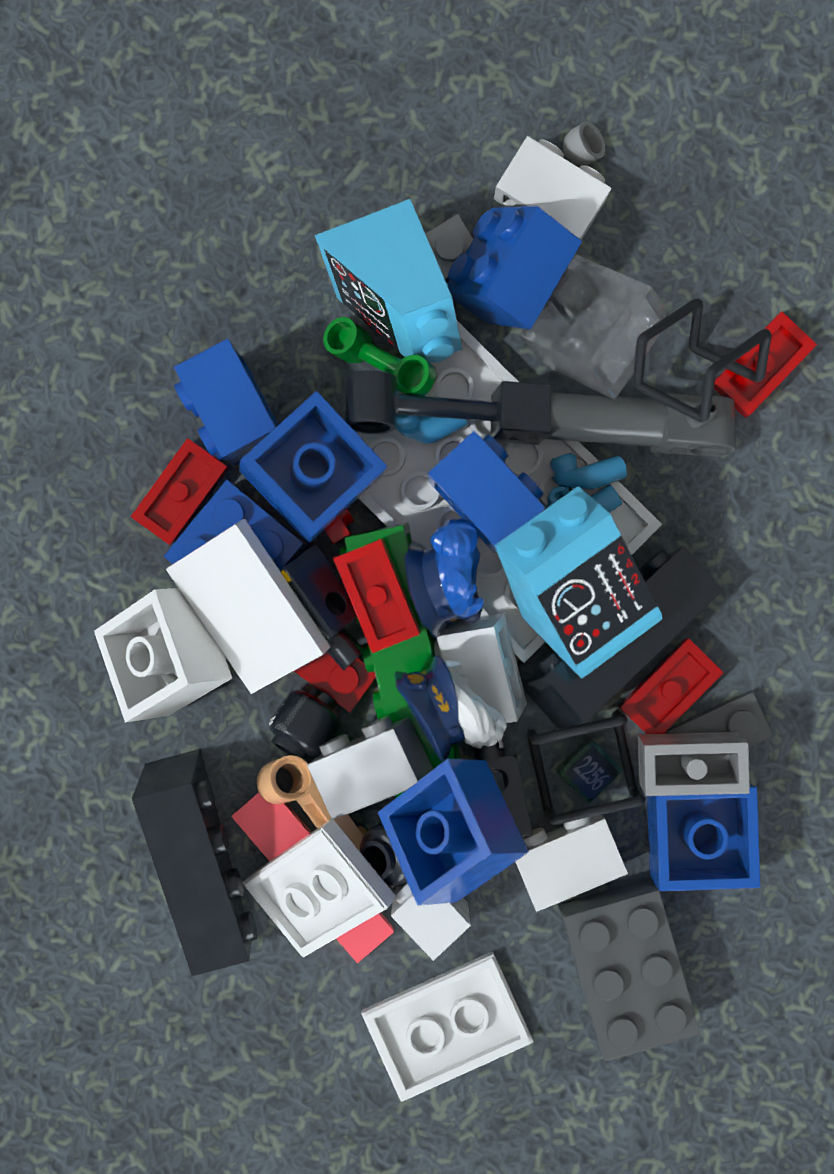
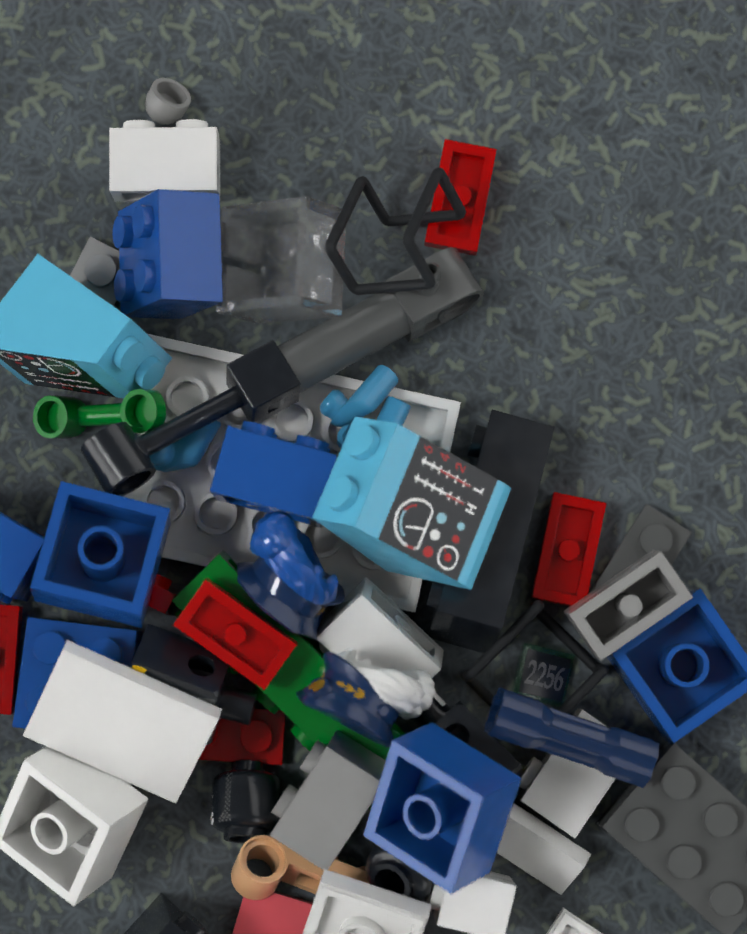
camera: 25 degrees left, 5 degrees down
(507, 907) = (541, 850): none -> white tile
(571, 822) = (537, 726): none -> dark blue axle

